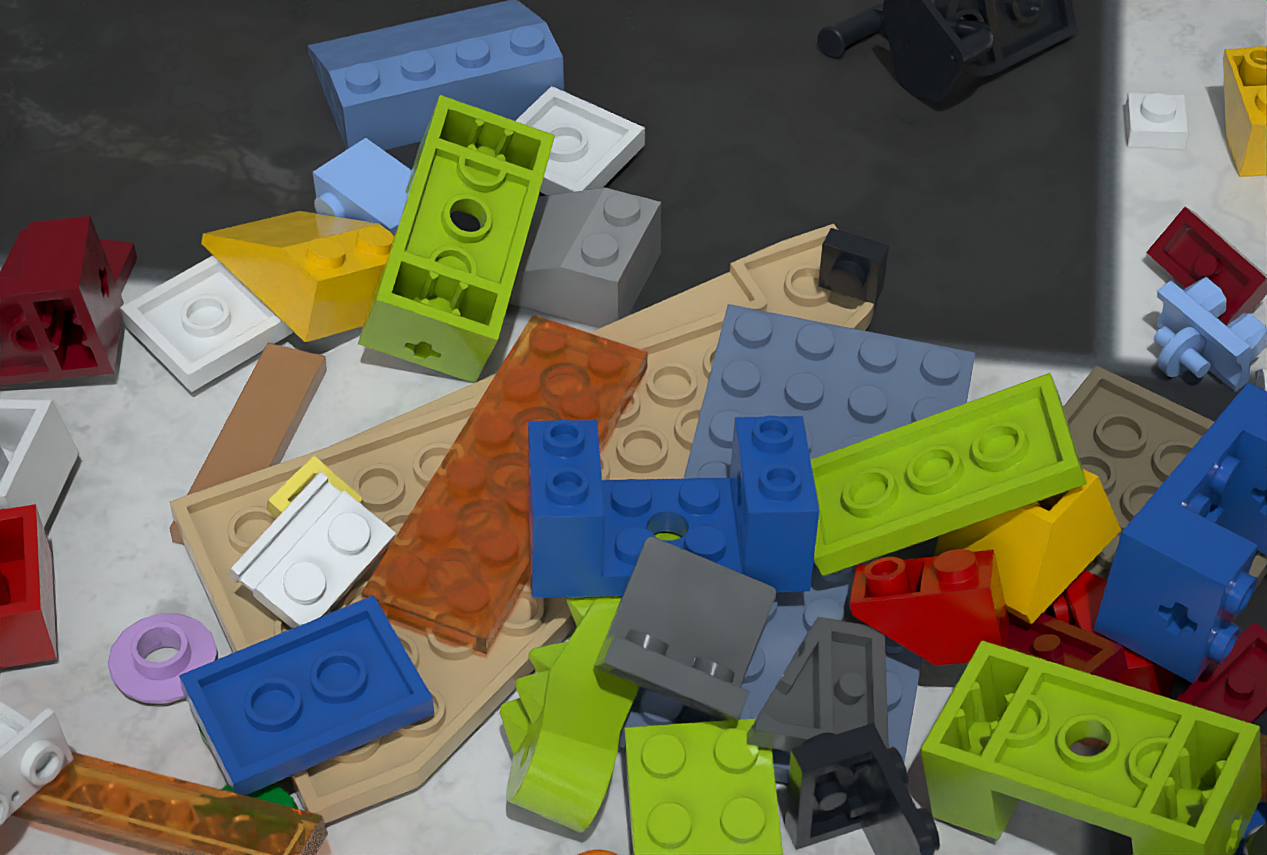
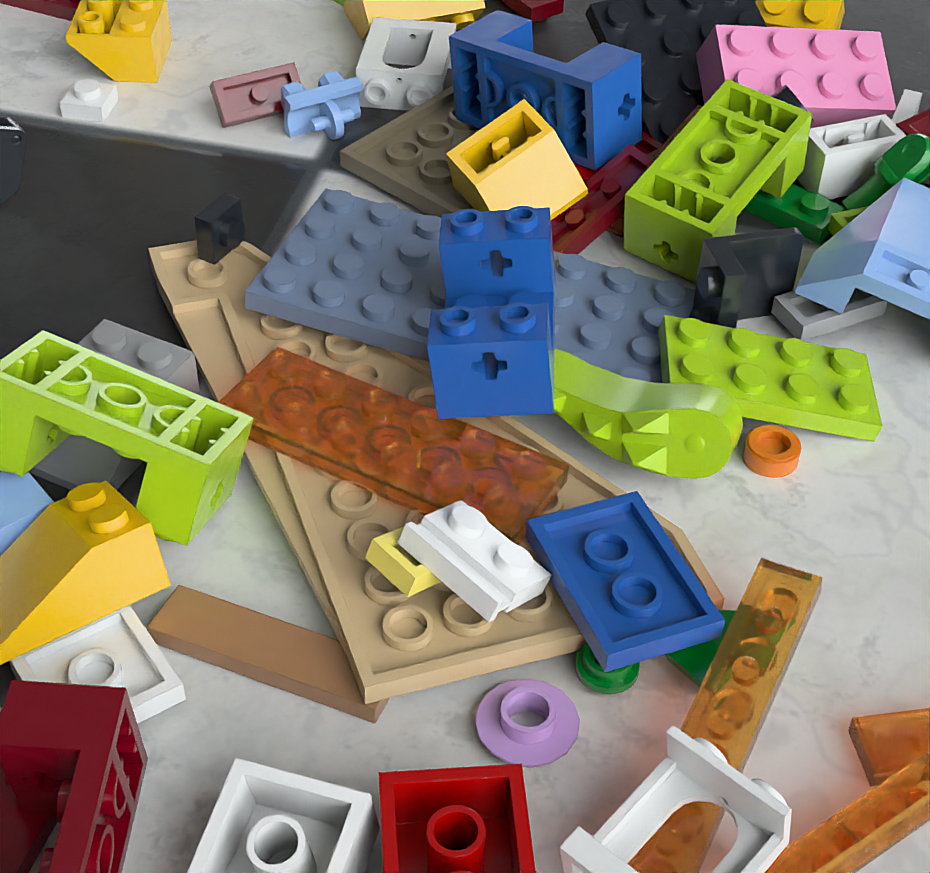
camera: 85 degrees left, 5 degrees down
(687, 629) = (607, 335): dark grey bracket -> none
(827, 687) = (647, 280): dark grey wing -> none
(934, 603) = (583, 210): red slope -> none
(943, 473) = (487, 152): lime plate -> none

